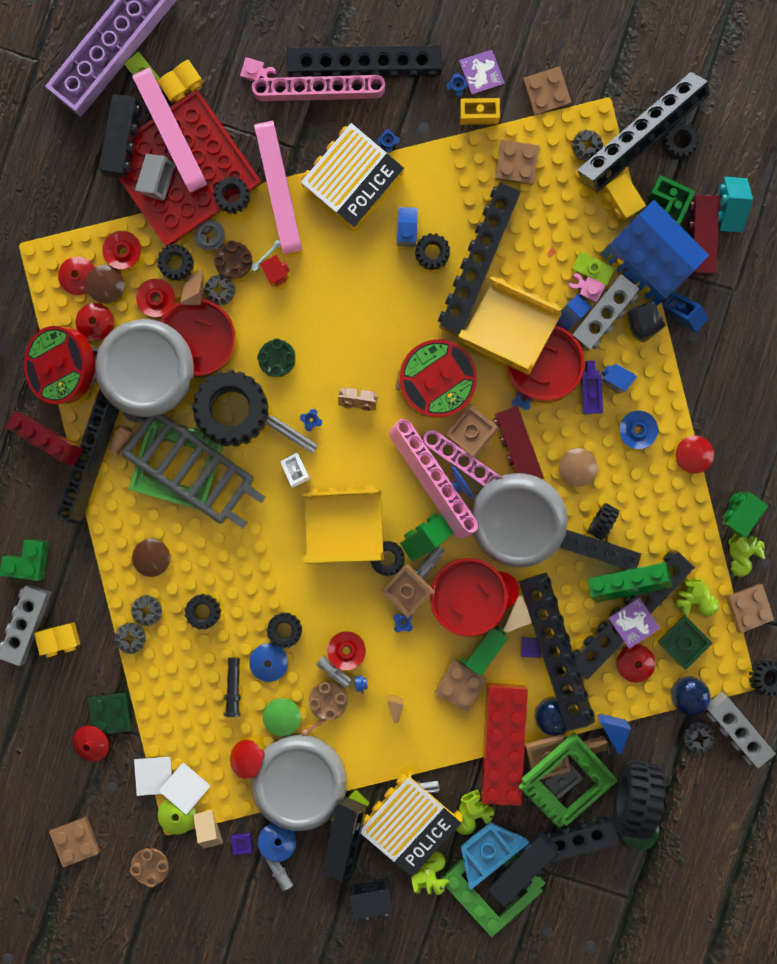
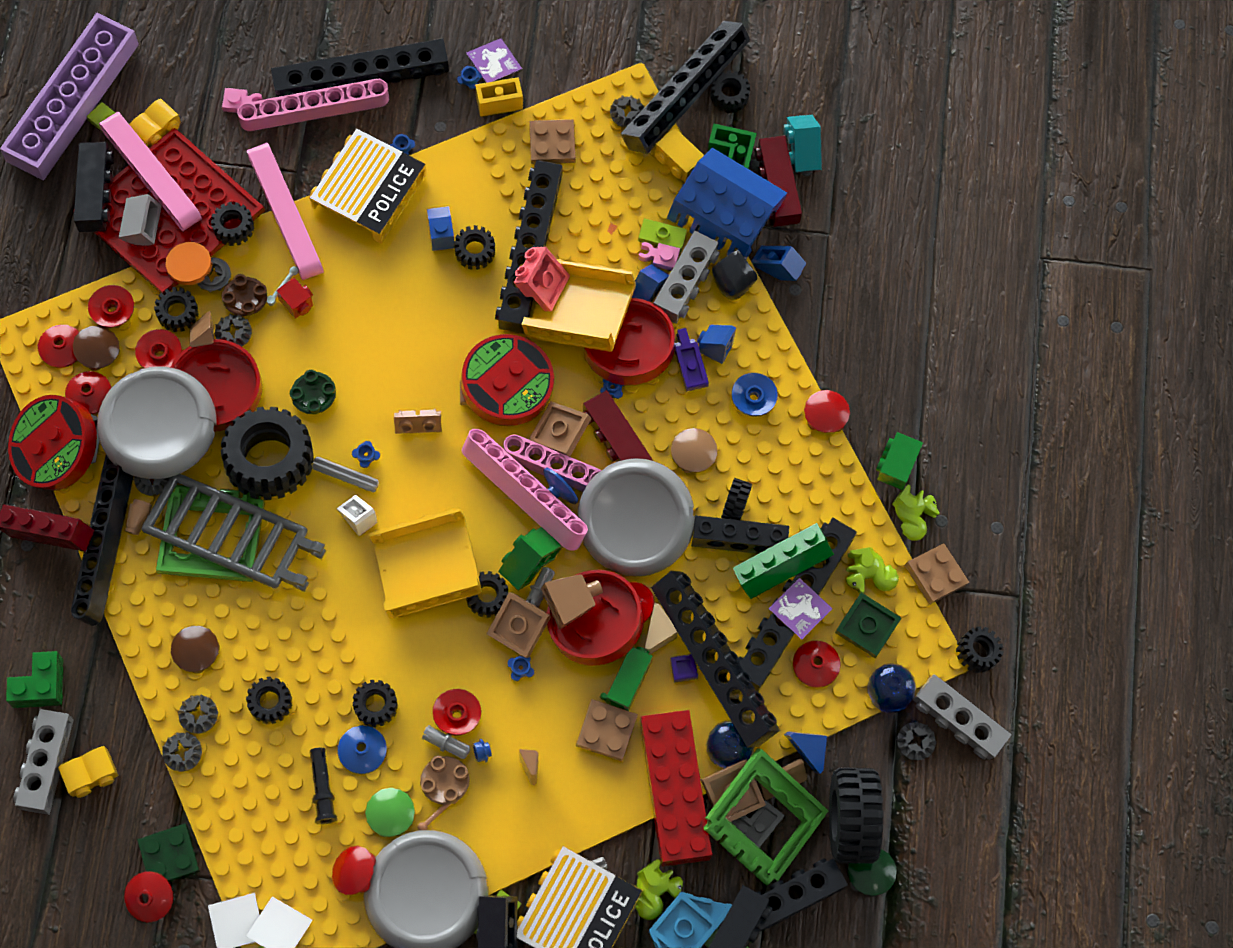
camera: 15 degrees left, 20 degrees down
(190, 224) = (188, 263): none -> orange tile
(452, 582) = (570, 598): none -> medium nougat torso
(483, 295) = (541, 277): none -> coral plate
(547, 91) = (570, 67): medium nougat plate -> none

